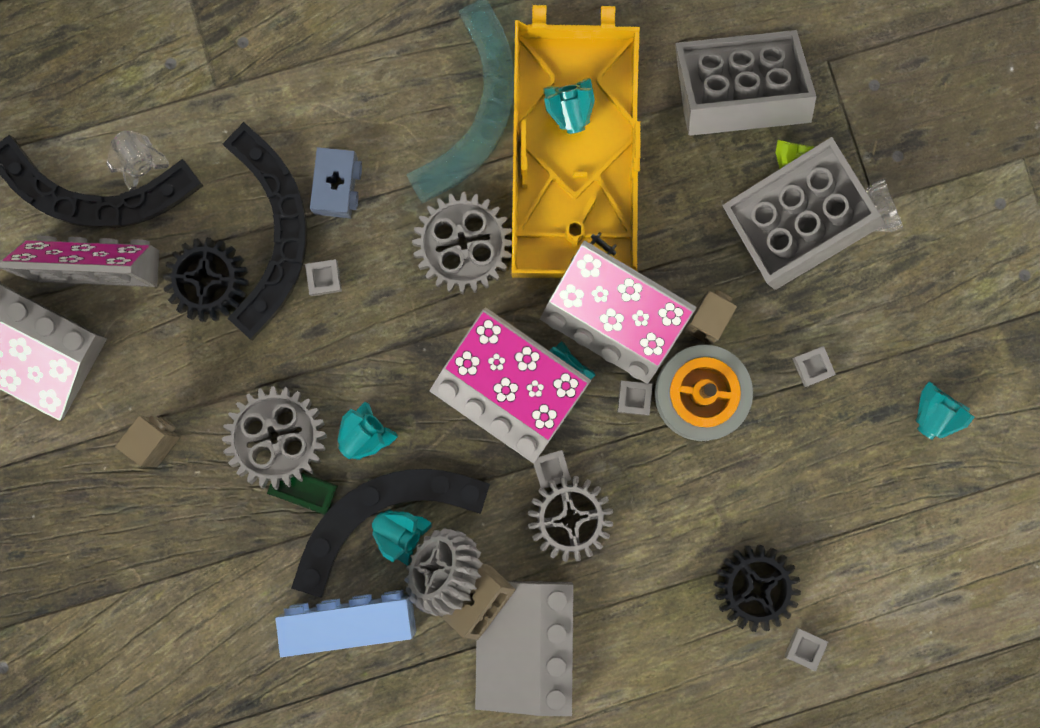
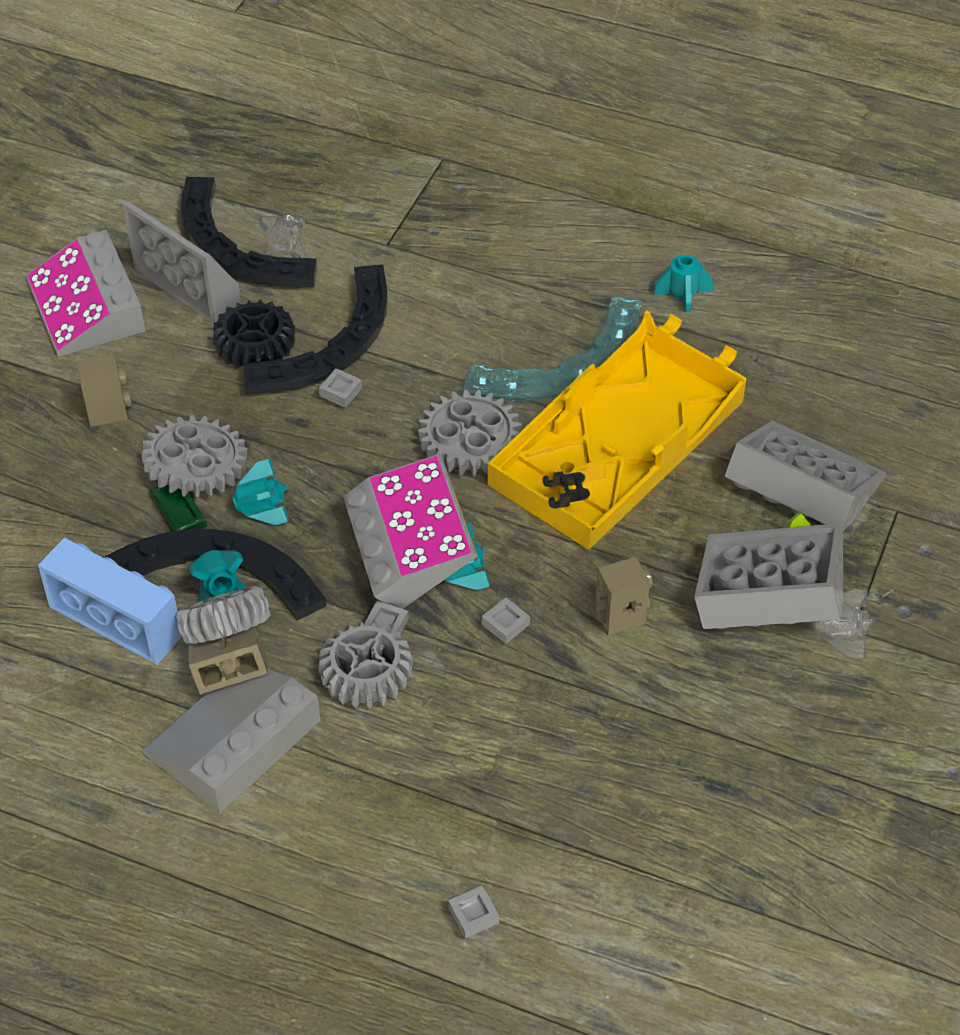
camera: 40 degrees right, 35 degrees down
(328, 167) = (410, 338): sand blue brick -> none
(570, 105) = (642, 394): teal brick -> none
(617, 312) = (545, 535): slope -> none
(703, 393) = (567, 649): wheel -> none
(771, 580) = (493, 839): black gear -> none
(814, 366) = (686, 701): light grey plate -> none
(940, 413) = (772, 809): teal brick -> none

